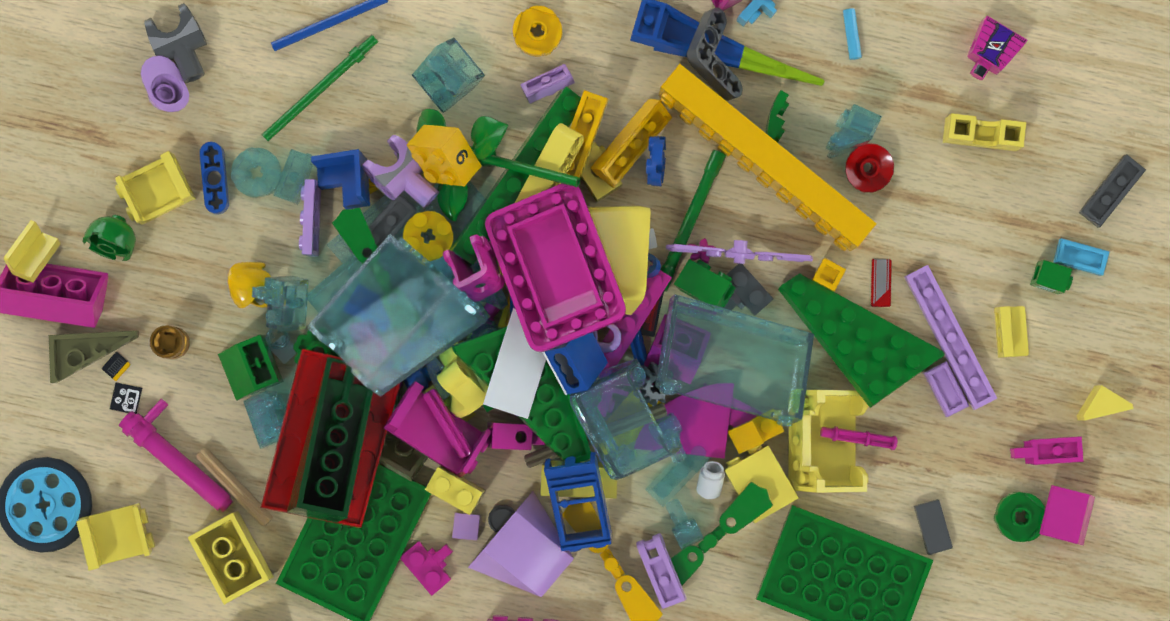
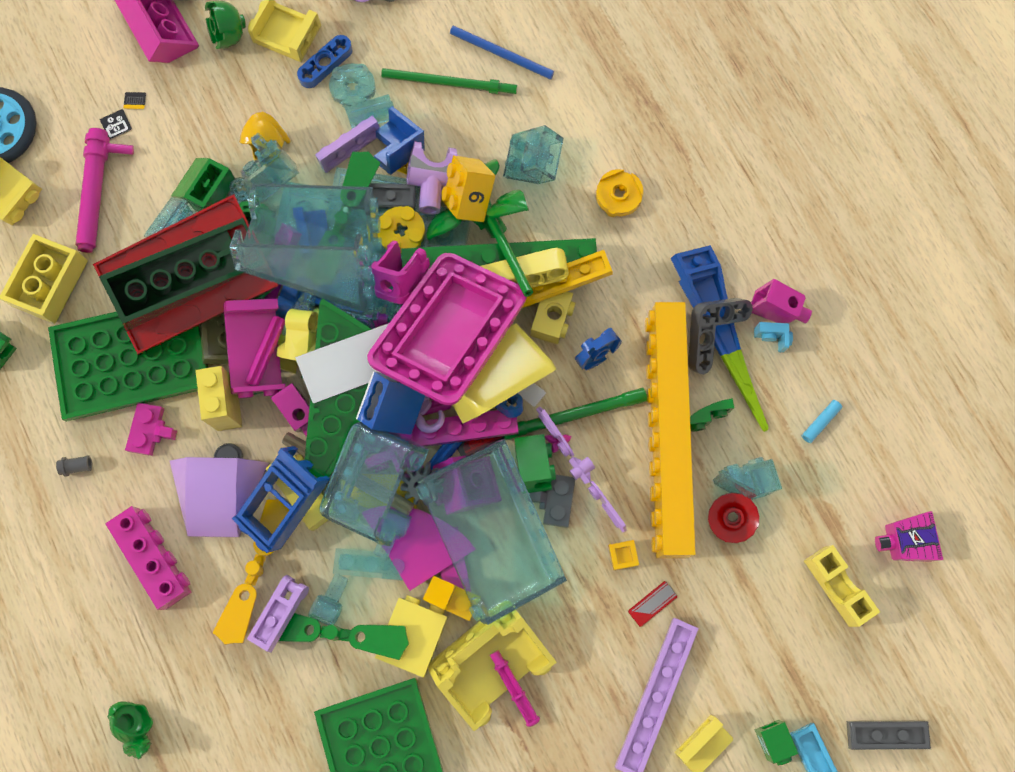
camera: 55 degrees right, 10 degrees down
(76, 351) = (123, 64): olive wing -> none
(169, 342) = (177, 117): pearl gold wheel -> none
(230, 482) = (104, 239): tan axle -> none
(466, 526) = (200, 434): lavender tile -> none
(547, 83) = (587, 228): lavender plate -> none
(631, 142) = (594, 321): yellow slope -> none
(710, 480) = (382, 593): white brick -> none
(864, 346) = (590, 629): green wing -> none
(946, 389) = (612, 729): lavender tile -> none

